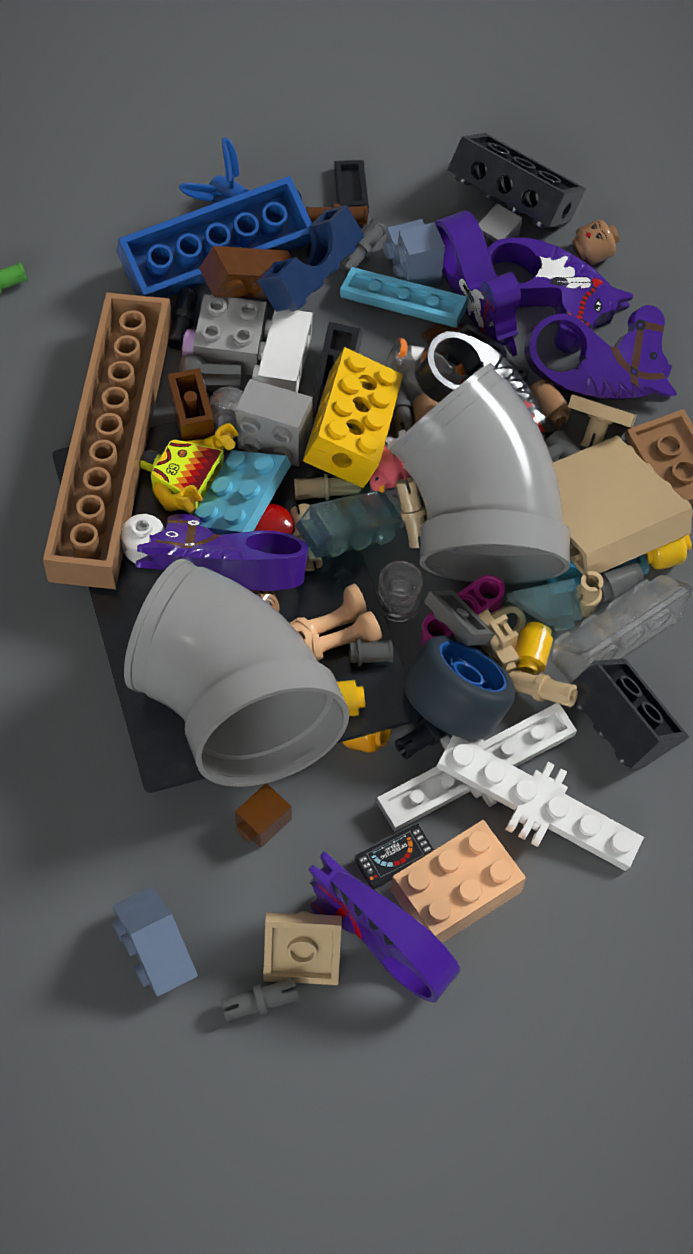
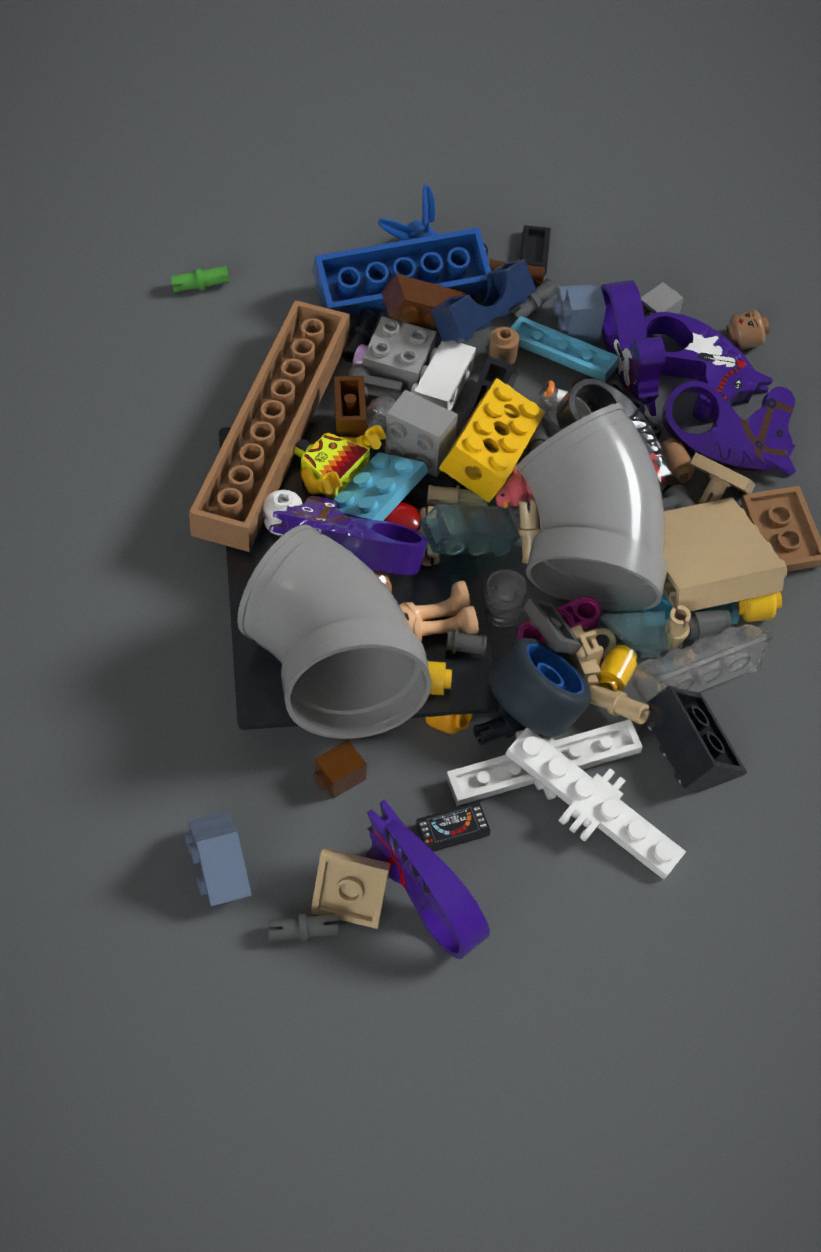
camera: 10 degrees right, 5 degrees down
(341, 304) = (504, 344): none -> medium nougat brick
(458, 882) = (506, 858): light nougat brick -> none
(516, 180) = (684, 264): black brick -> none

